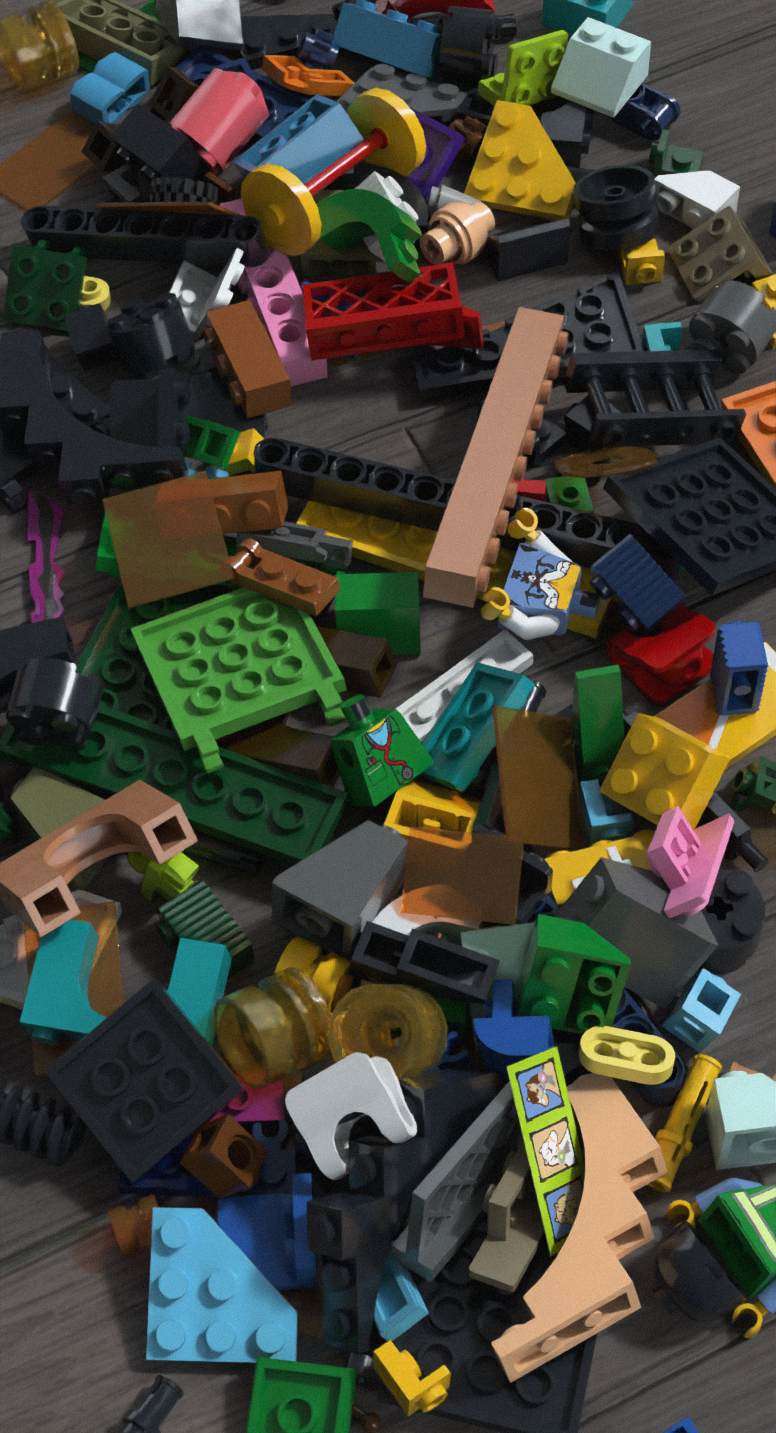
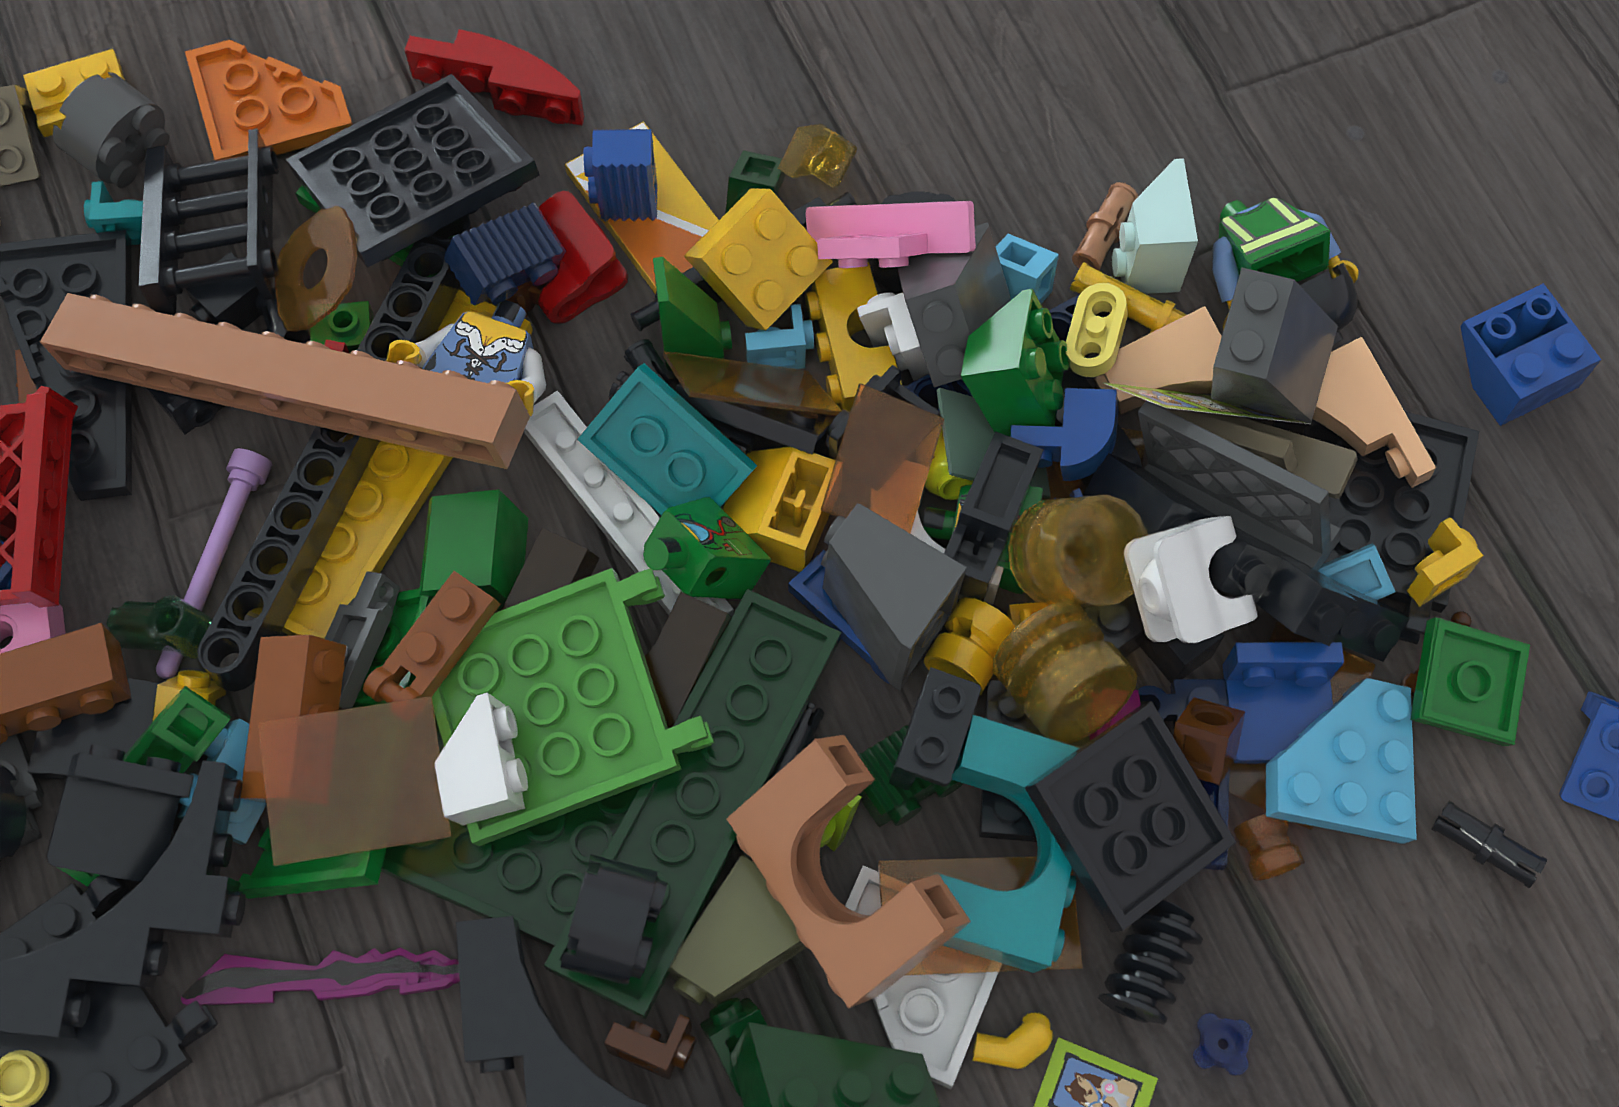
camera: 90 degrees left, 10 degrees up
(183, 614) = (479, 765): none -> white slope
(215, 919) = (935, 730): none -> black bracket
(303, 420) = (159, 625): none -> clear green piece
(439, 463) = (246, 472): none -> lavender piece
(594, 1177) = (1273, 348): none -> dark grey slope

